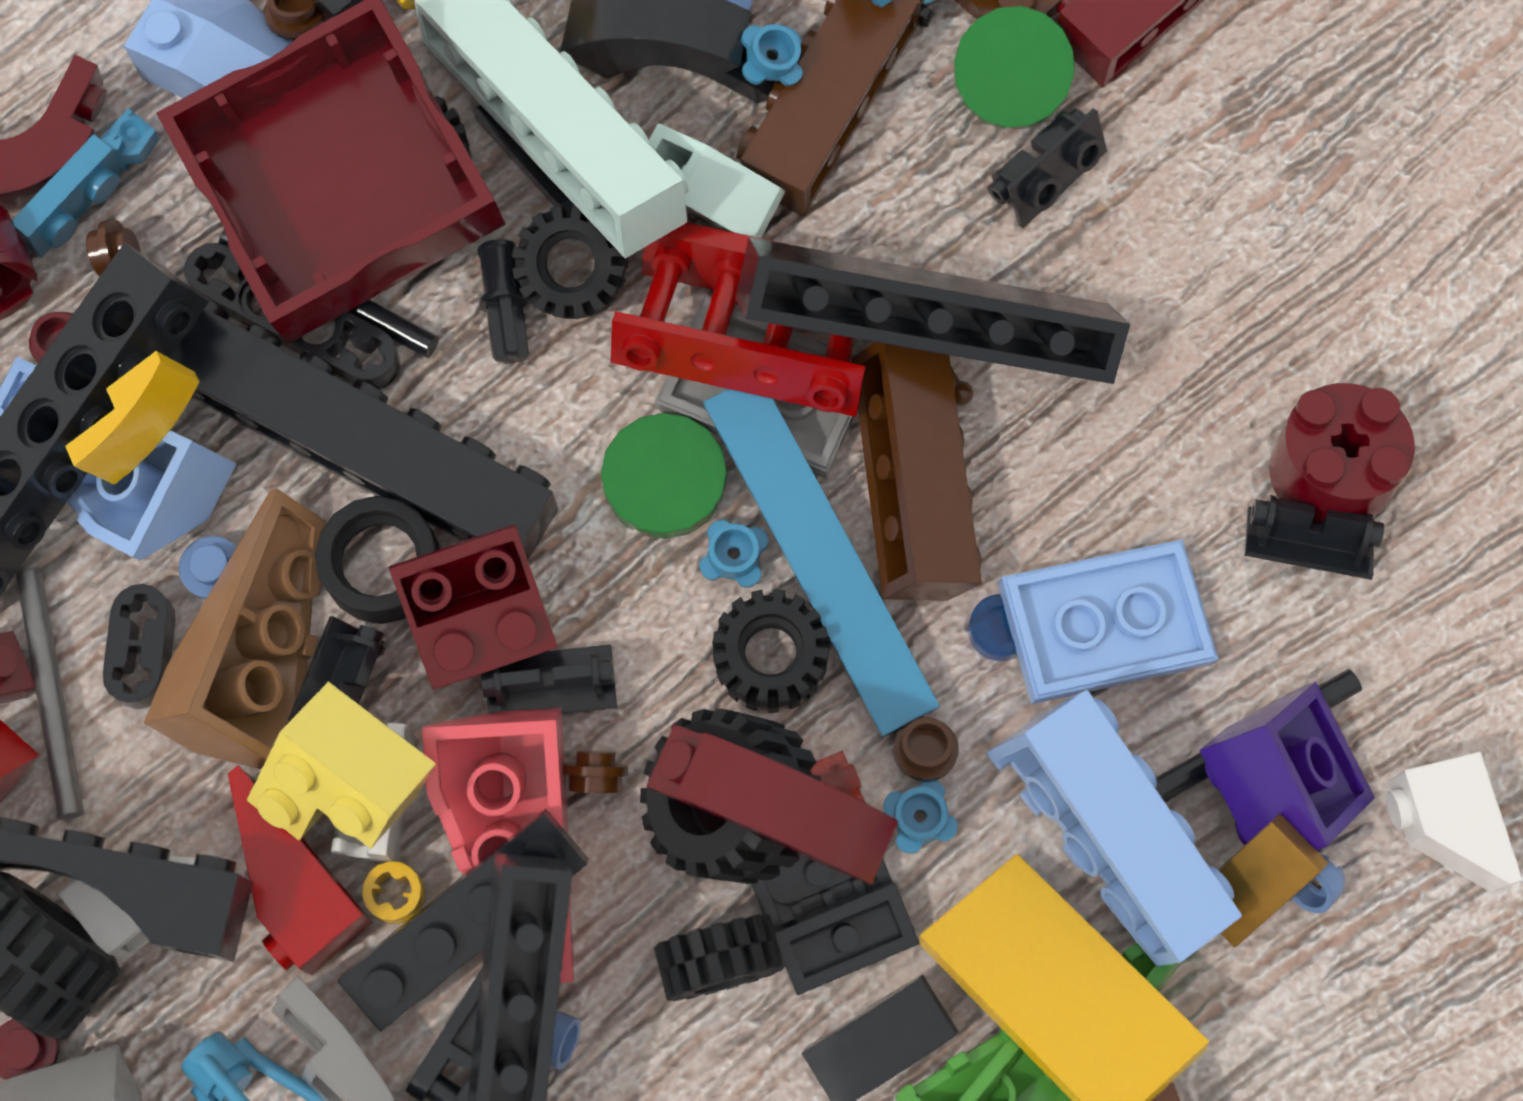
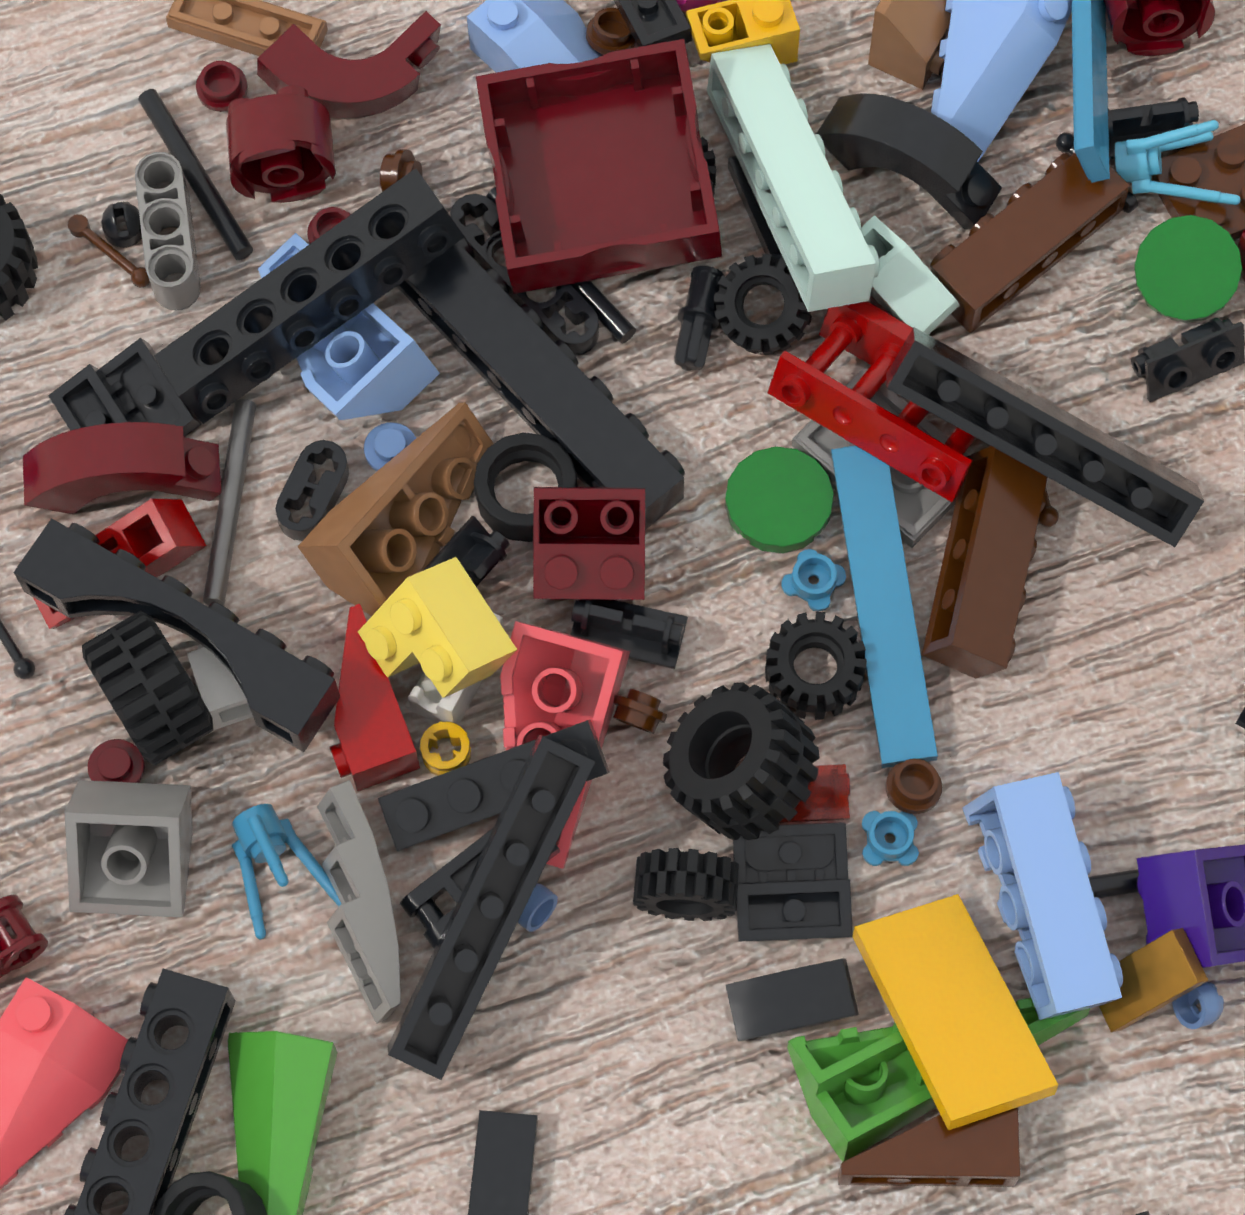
camera: 20 degrees right, 5 degrees down
(86, 178) = (395, 113): dark azure hinge -> none
(146, 408) = (388, 301): yellow slope -> none
(773, 802) = (775, 767): dark red arch -> none
(783, 42) = (997, 181): dark azure plate -> none
(990, 630) = (1011, 713): clear blue tile -> none
(1107, 621) = (1103, 736): light blue tile -> none

